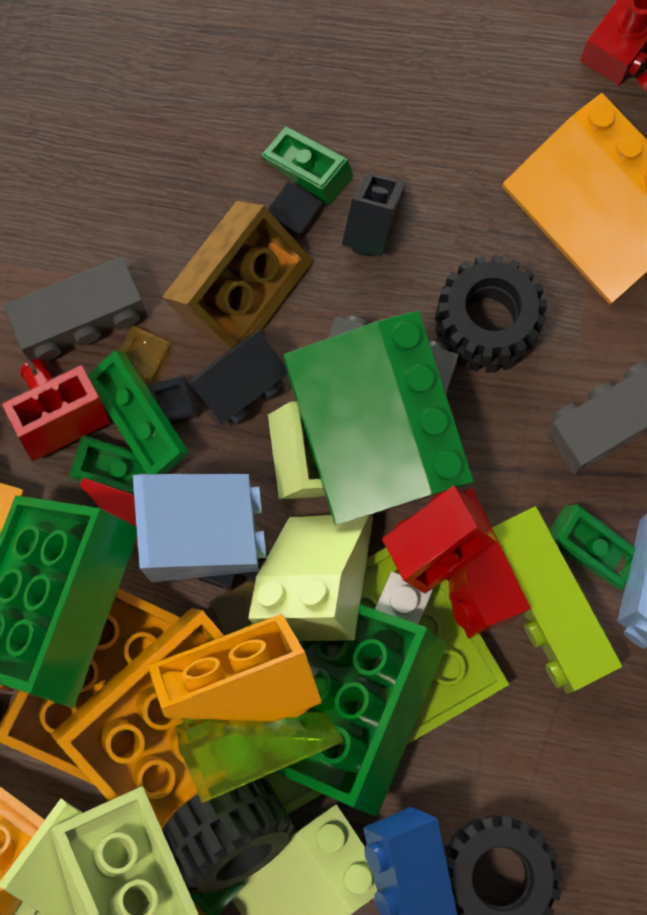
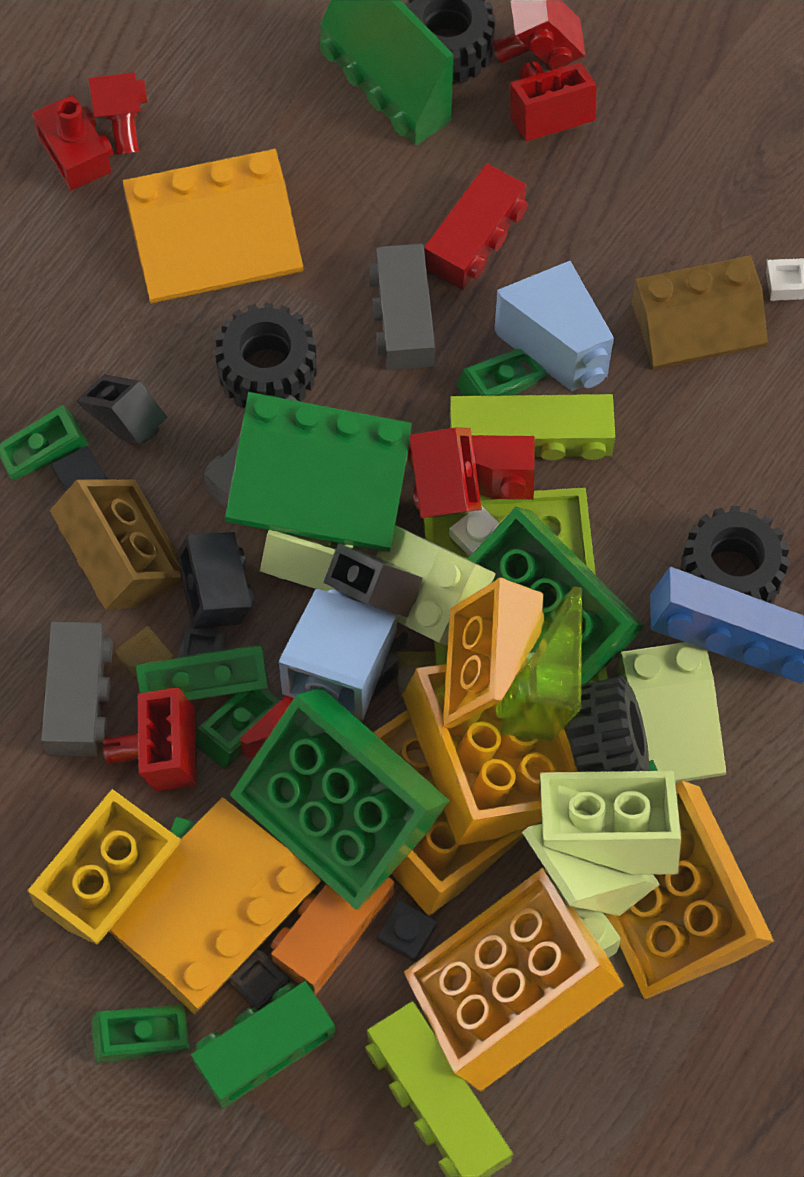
camera: 65 degrees left, 10 degrees down
(282, 525) = (373, 580): none -> black brick

